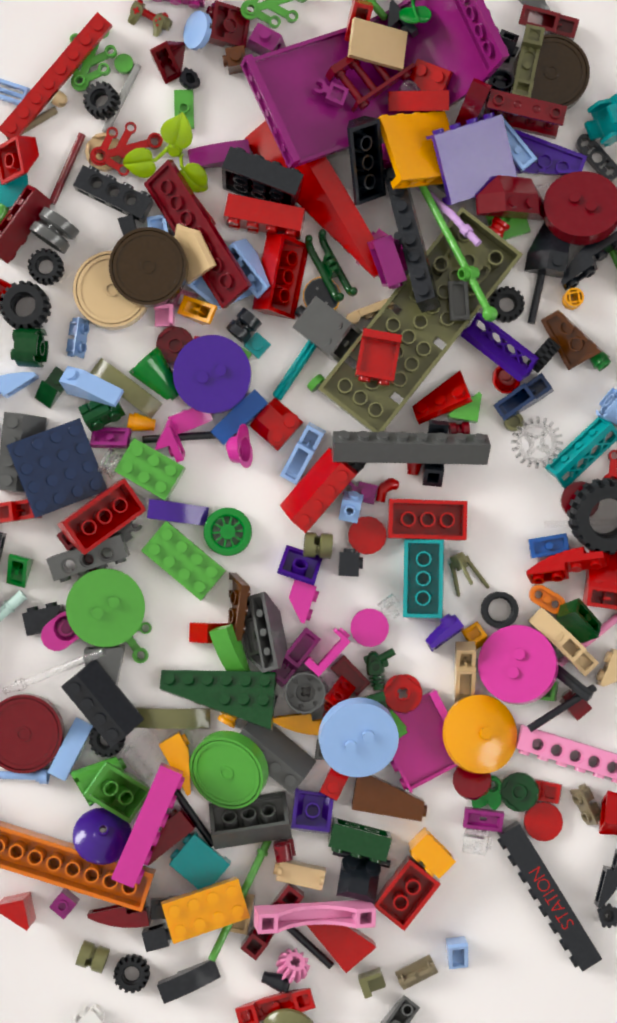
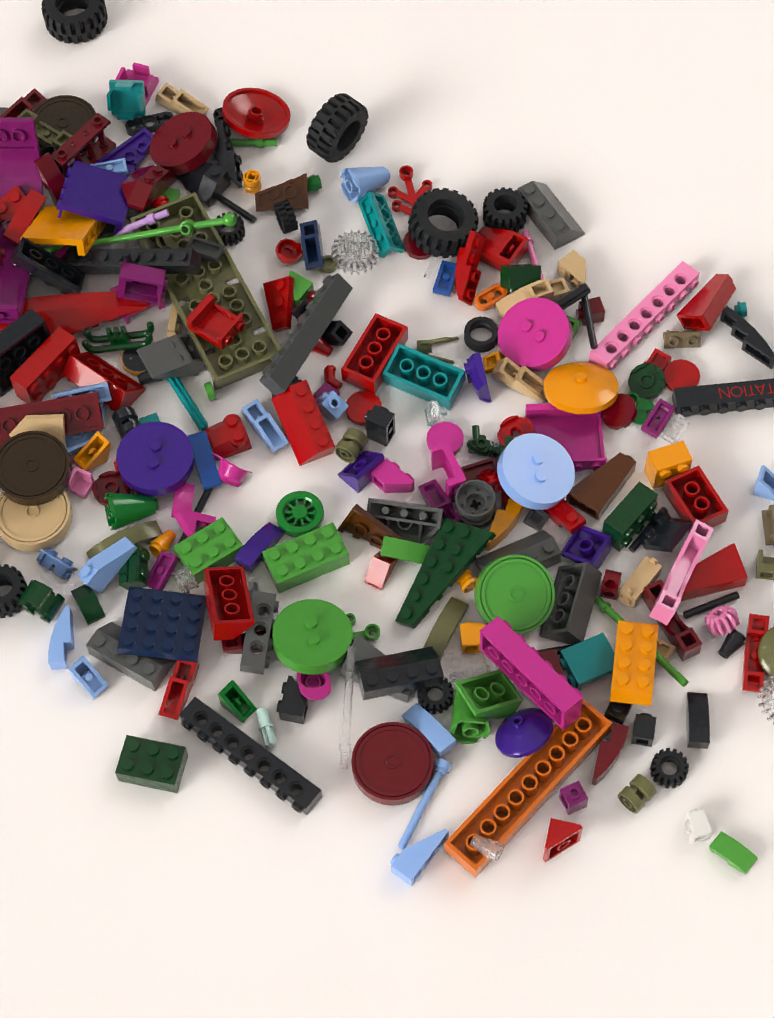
camera: 60 degrees left, 25 degrees down
(498, 351) = (265, 246): dark purple fence -> none

